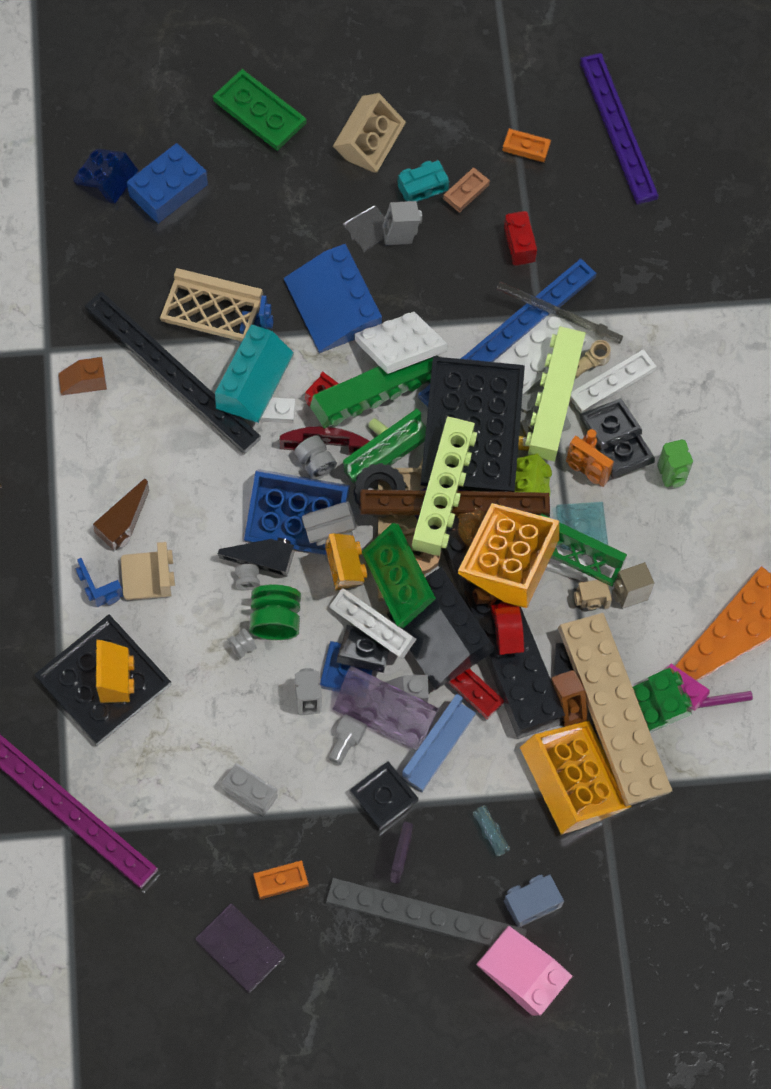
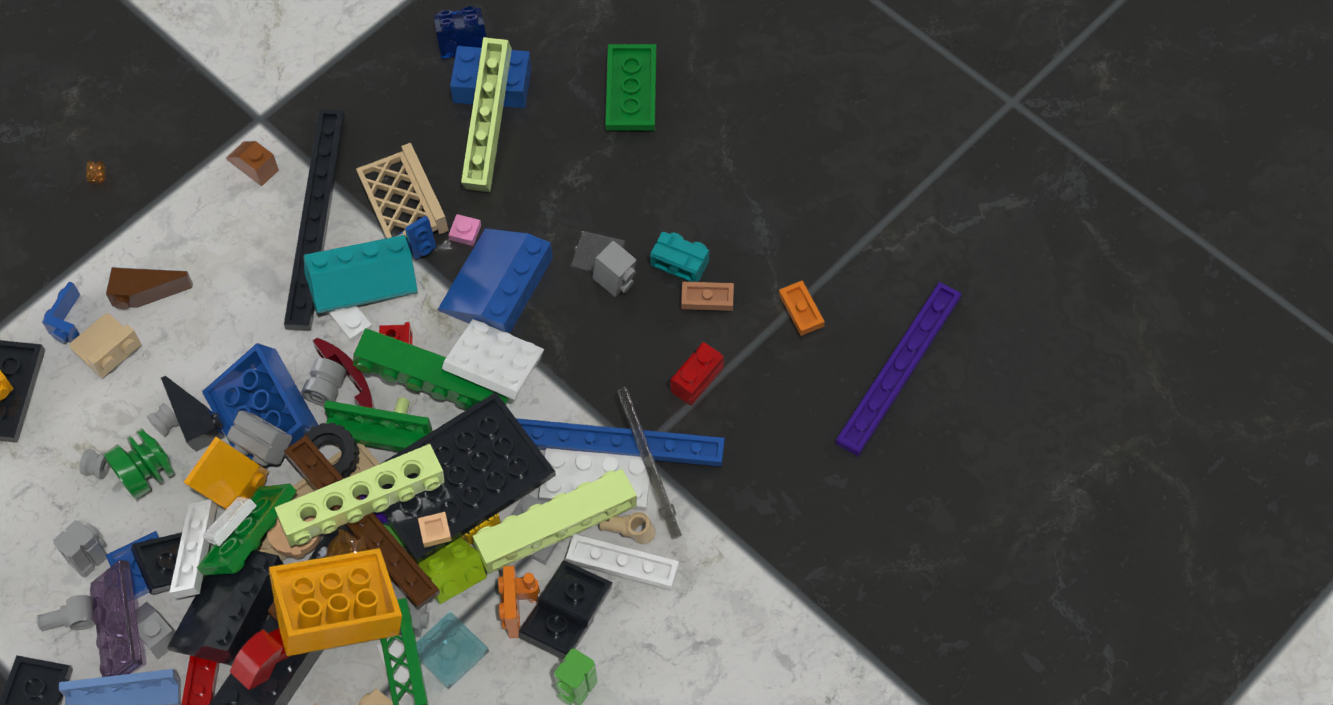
camera: 55 degrees right, 5 degrees down
(208, 203) = (486, 114): none -> yellowish green brick
(273, 290) = (464, 230): none -> bright pink plate
(369, 132) = (689, 181): tan slope -> none
(381, 581) = (229, 520): none -> white tile
(507, 462) = (434, 529): none -> light nougat plate

